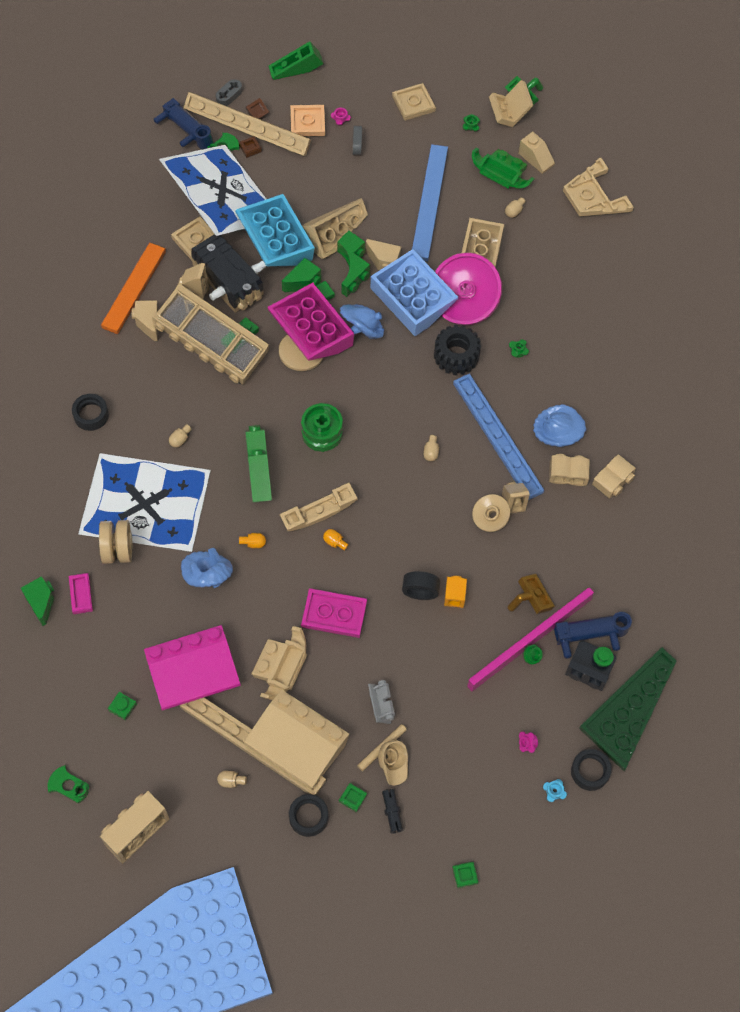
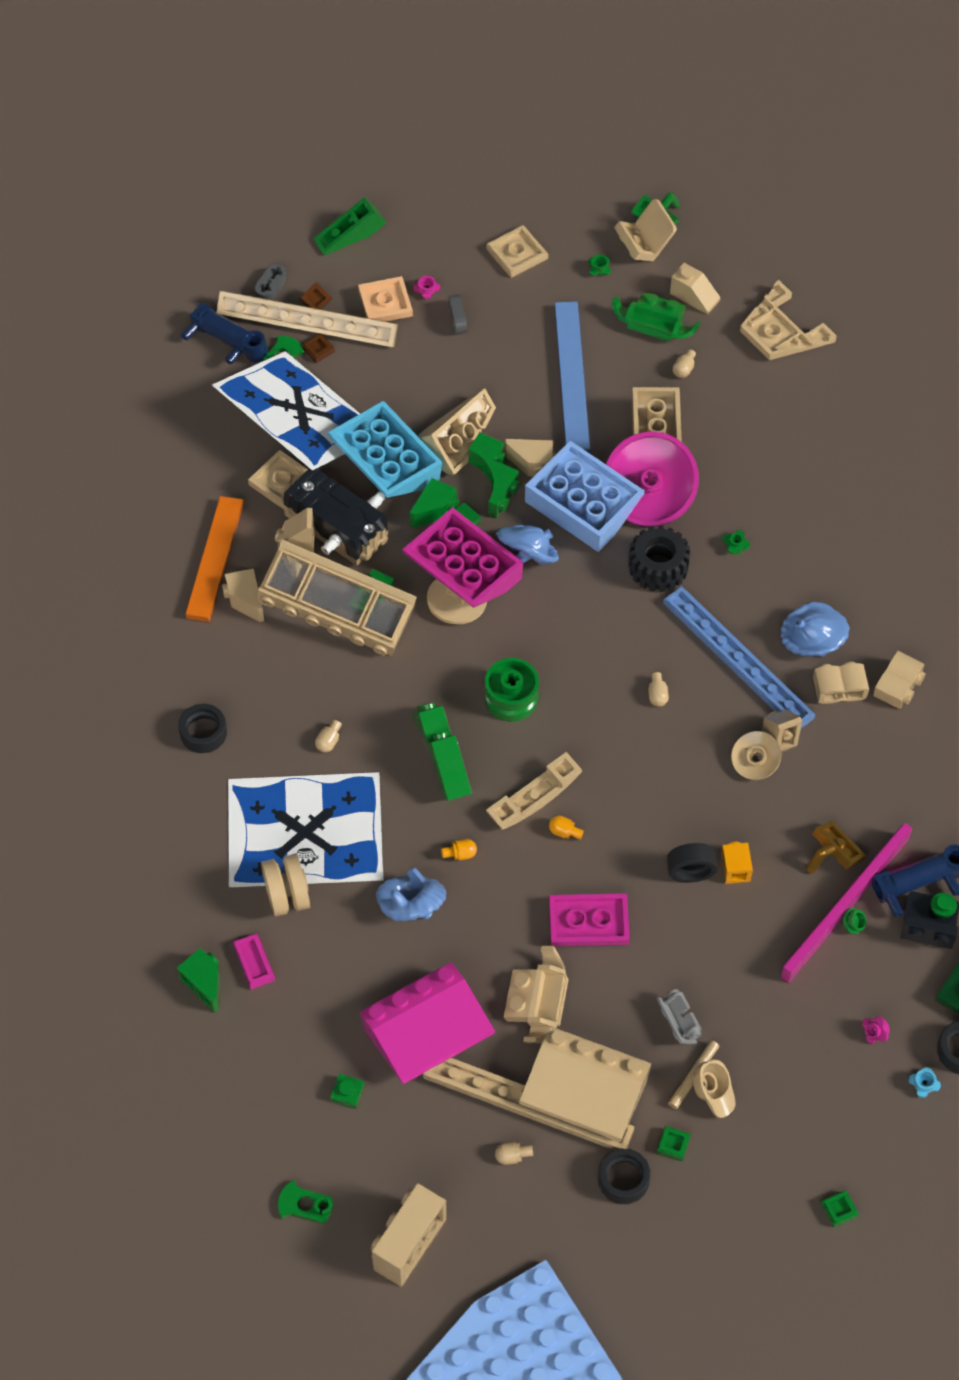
camera: 10 degrees left, 5 degrees down
(392, 811) = (728, 1149): black pin -> none

